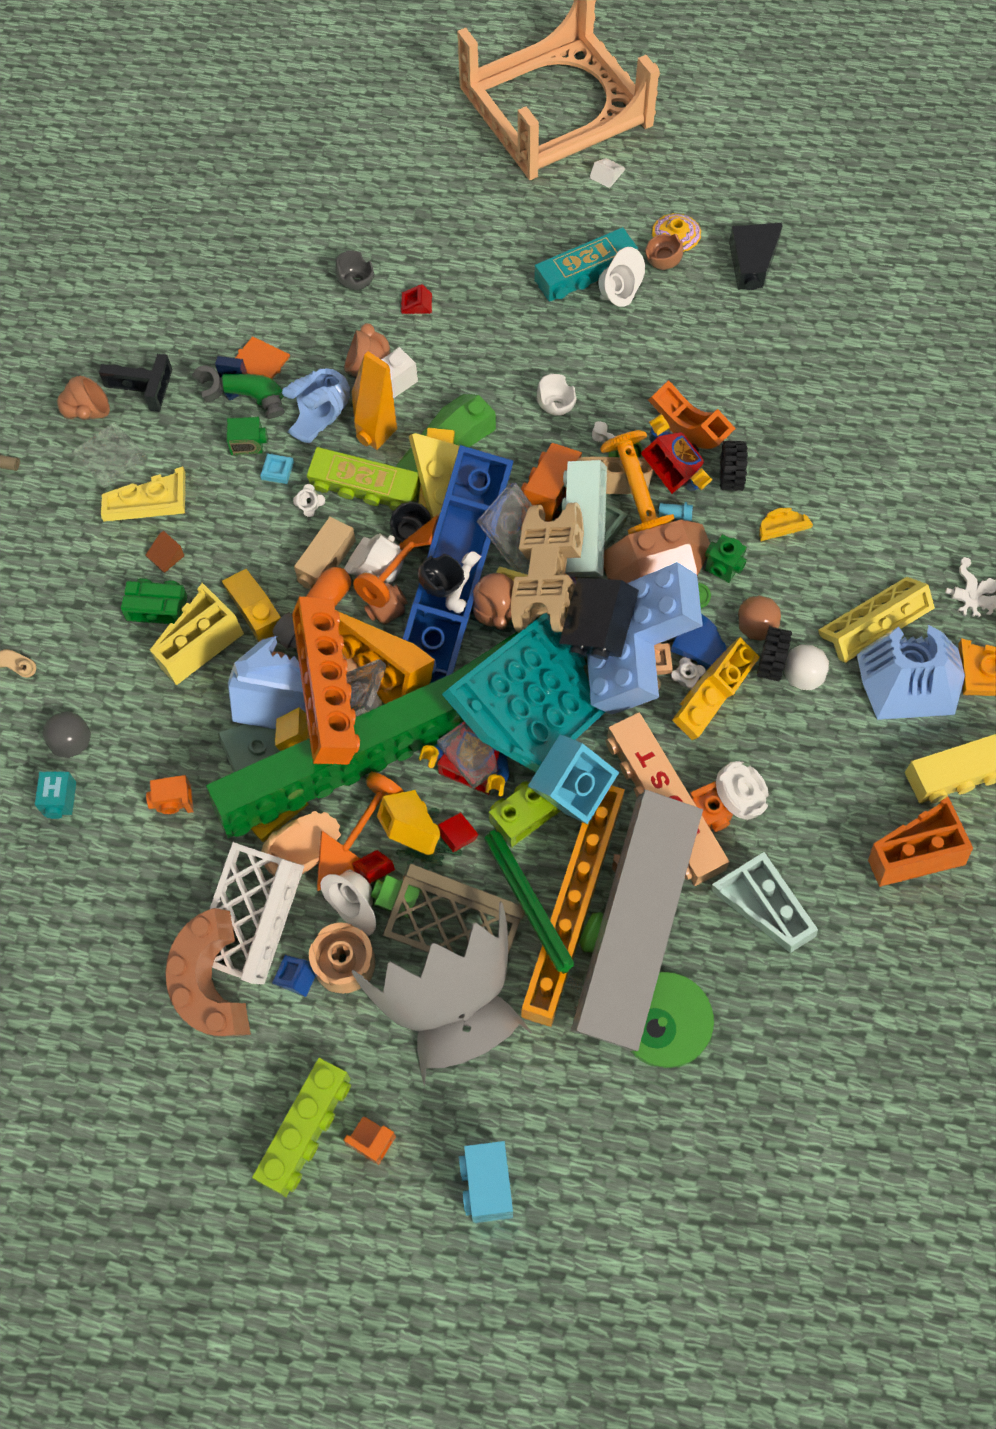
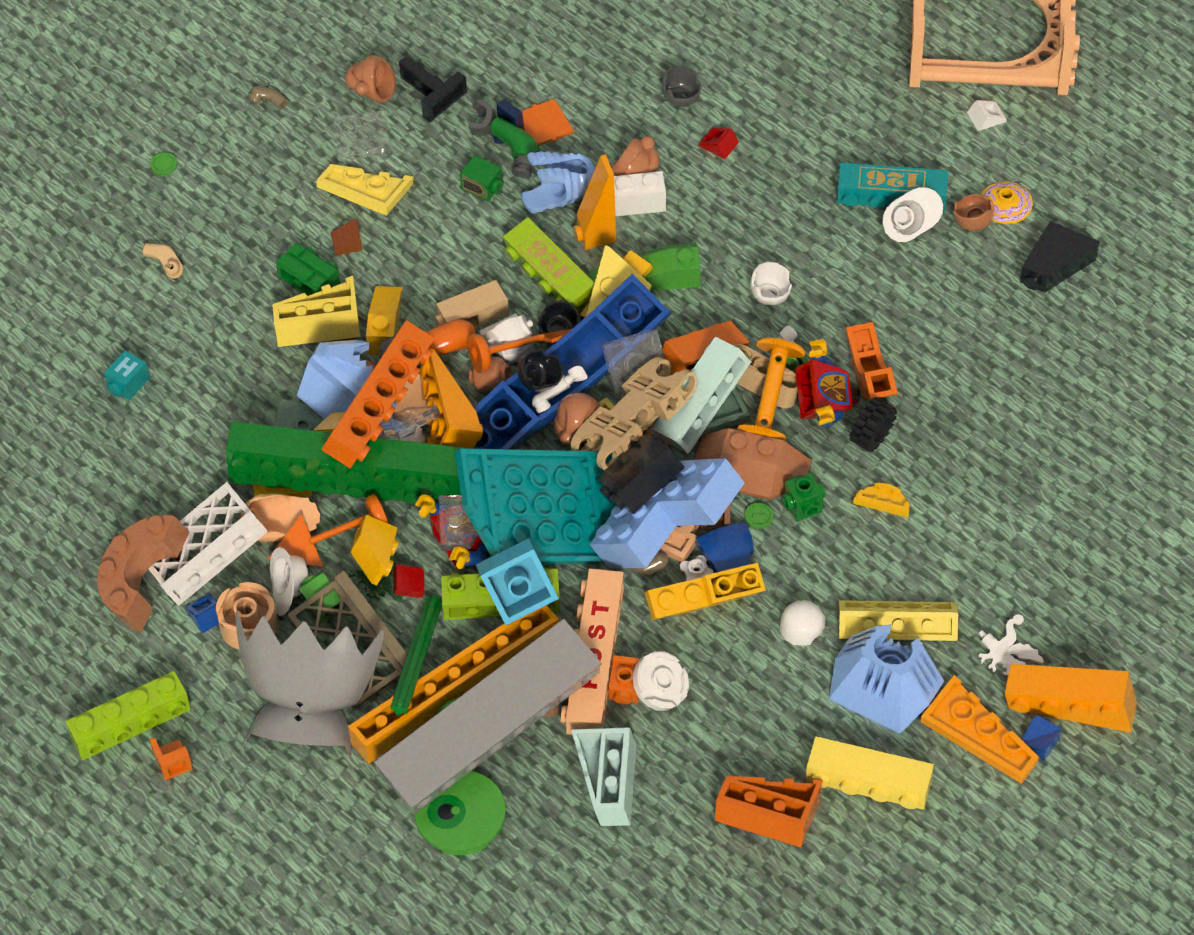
camera: 35 degrees right, 10 degrees down
(66, 734) = (167, 337): dark grey hair -> none
(170, 795) = (210, 425): orange brick -> none
(277, 468) = (489, 220): medium azure tile -> none
(301, 500) = (487, 259): white plate -> none
(373, 866) = (323, 564): red tile -> none
(488, 1182) = (229, 830): medium azure brick -> none
(680, 511) = (801, 441): medium azure pin -> none
(757, 615) = (795, 561): nougat hair -> none
(774, 653) = (776, 592): black tyre -> none

